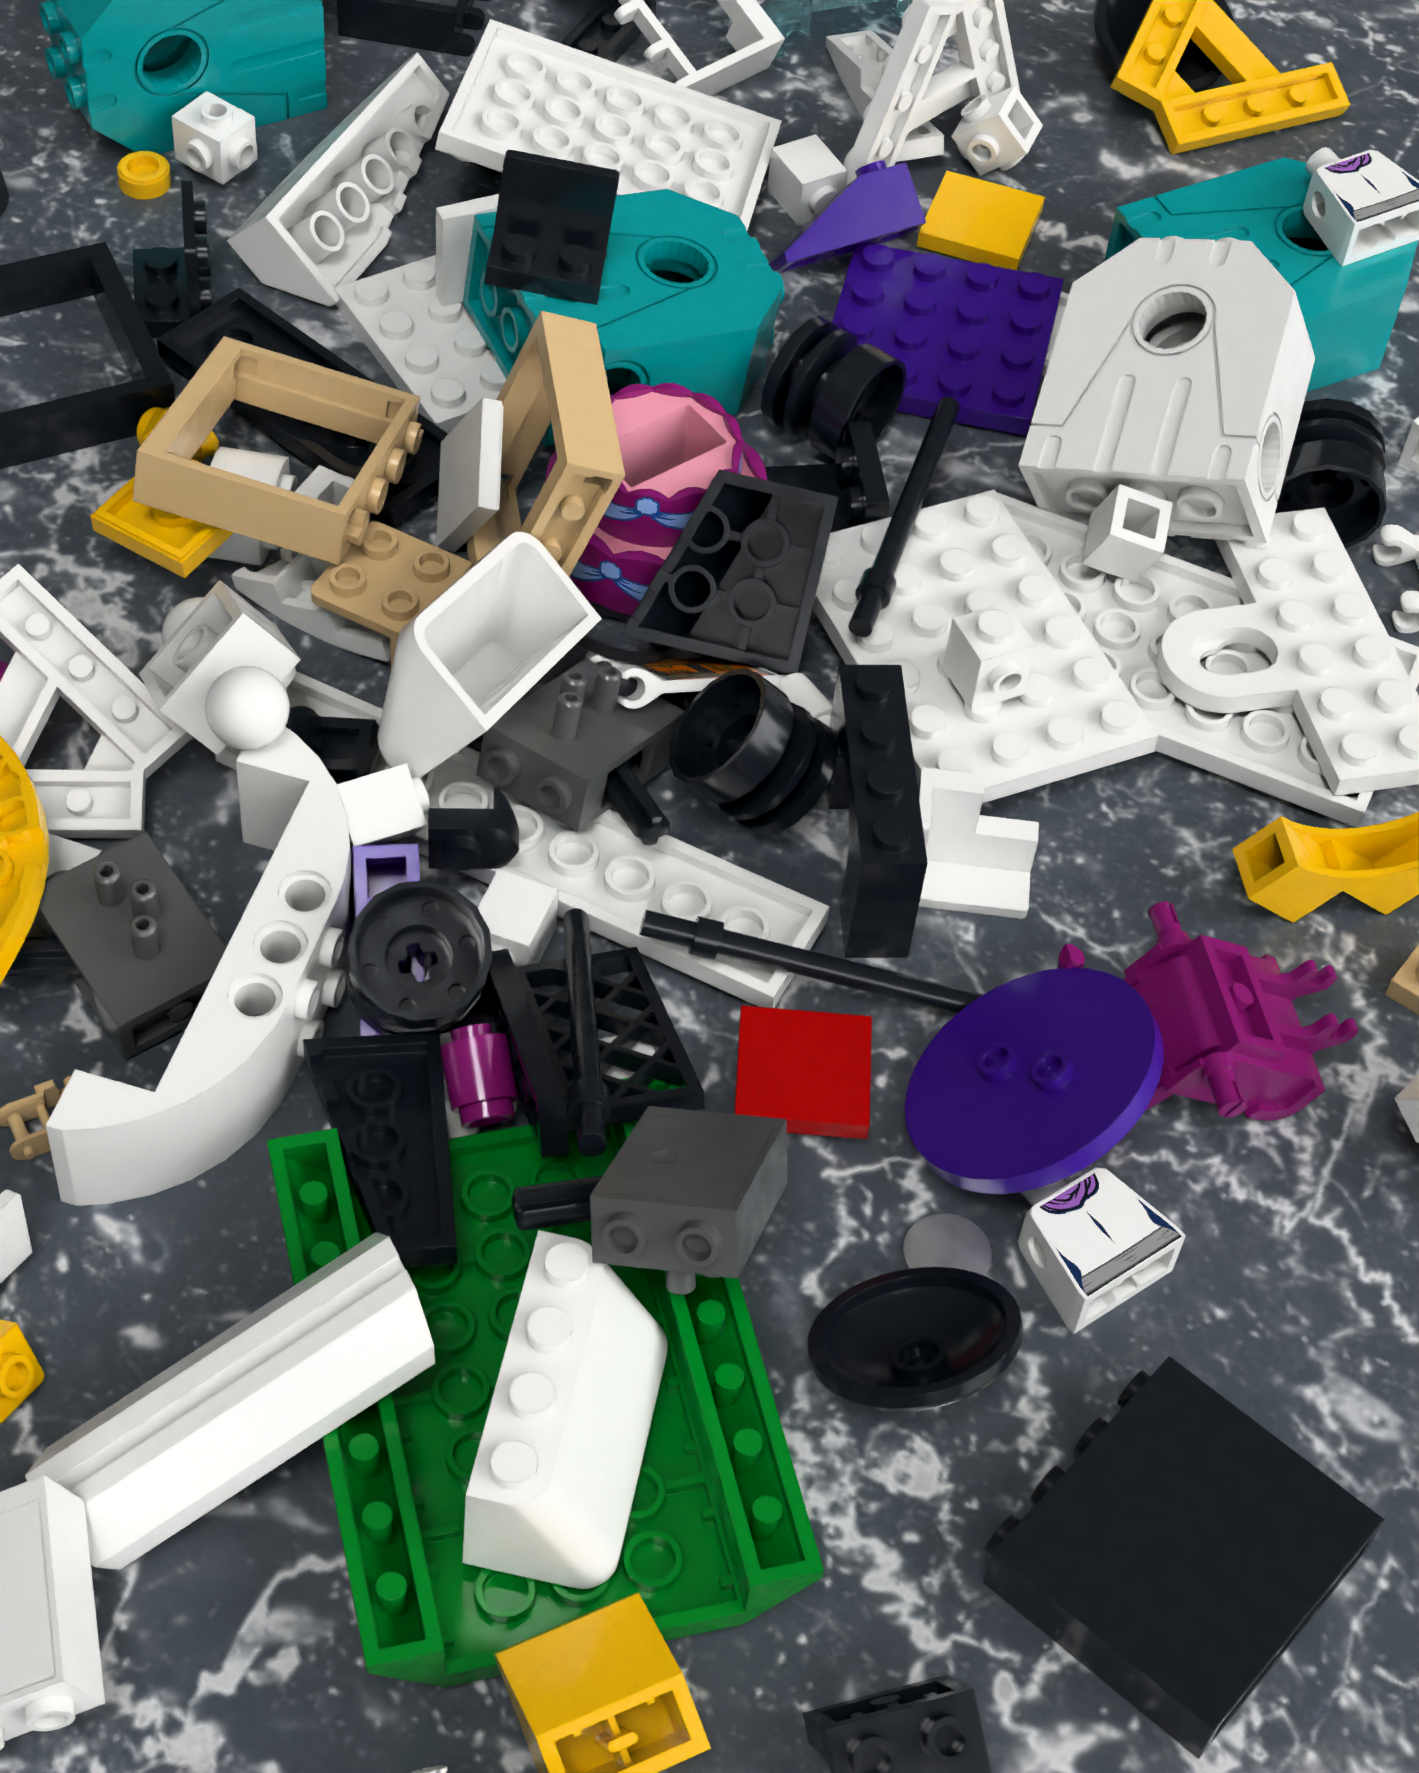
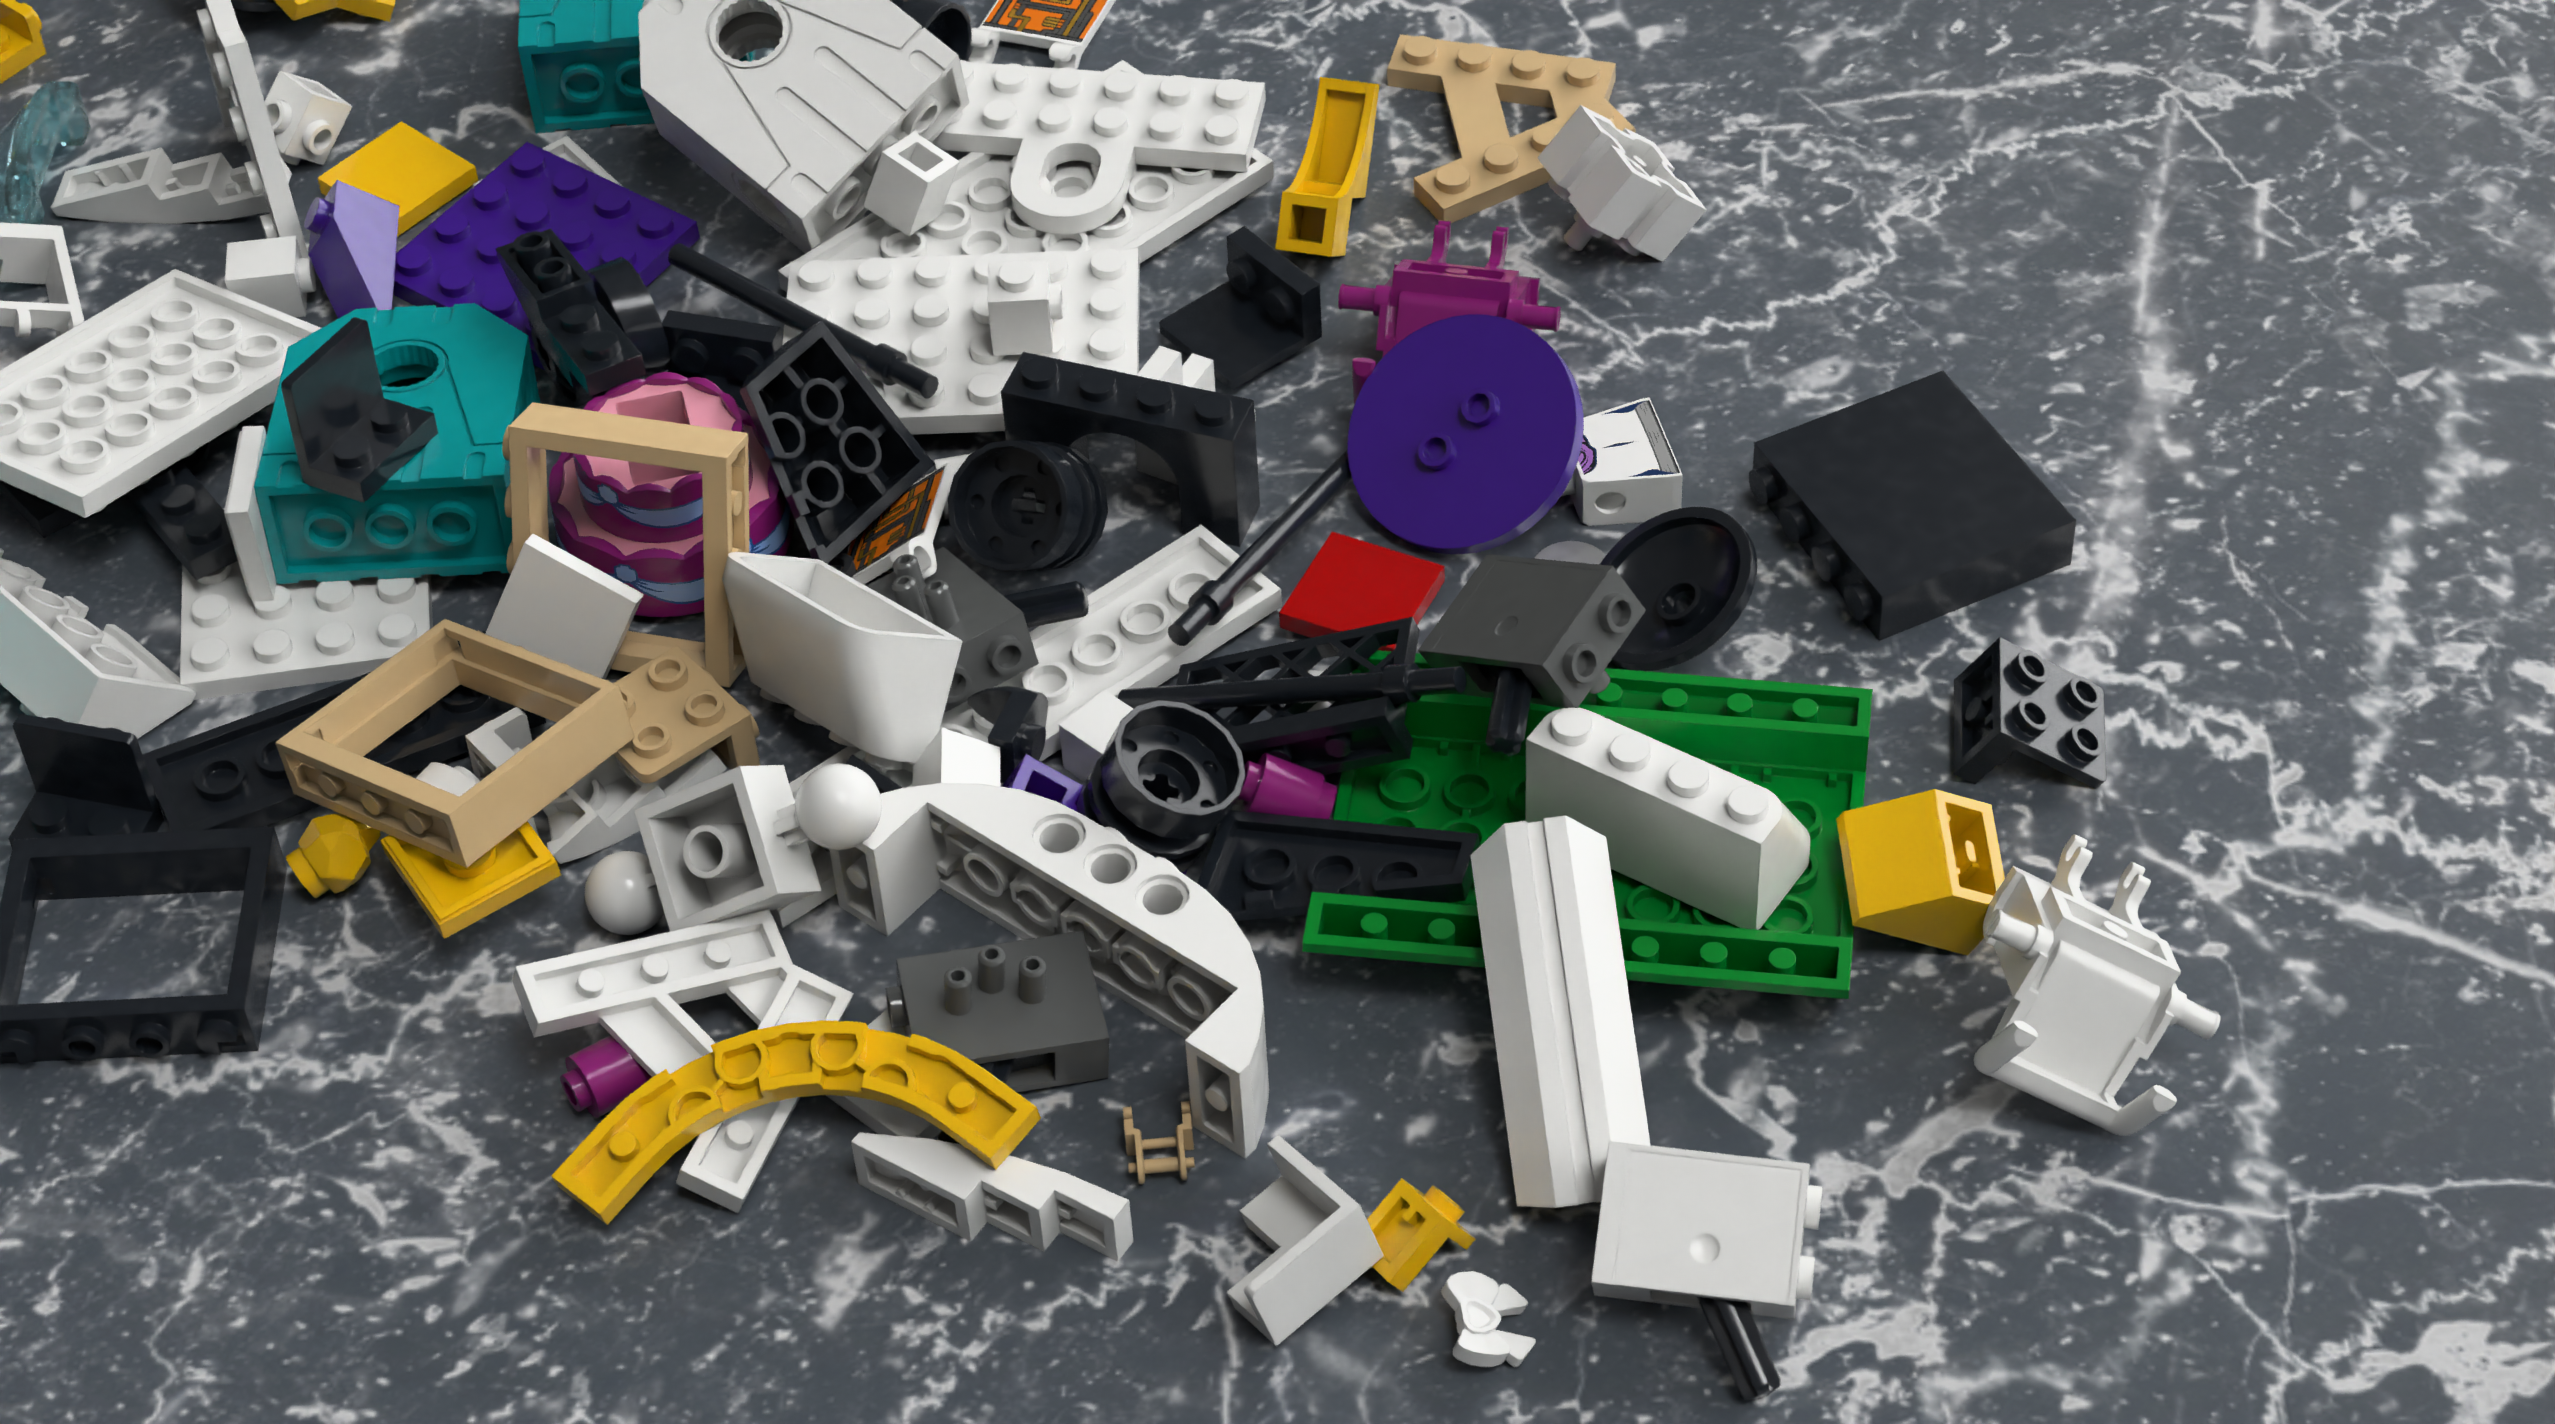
camera: 60 degrees left, 5 degrees down
(781, 342) = (567, 314): none -> black slope
(1129, 859) = (1254, 317): none -> black bracket

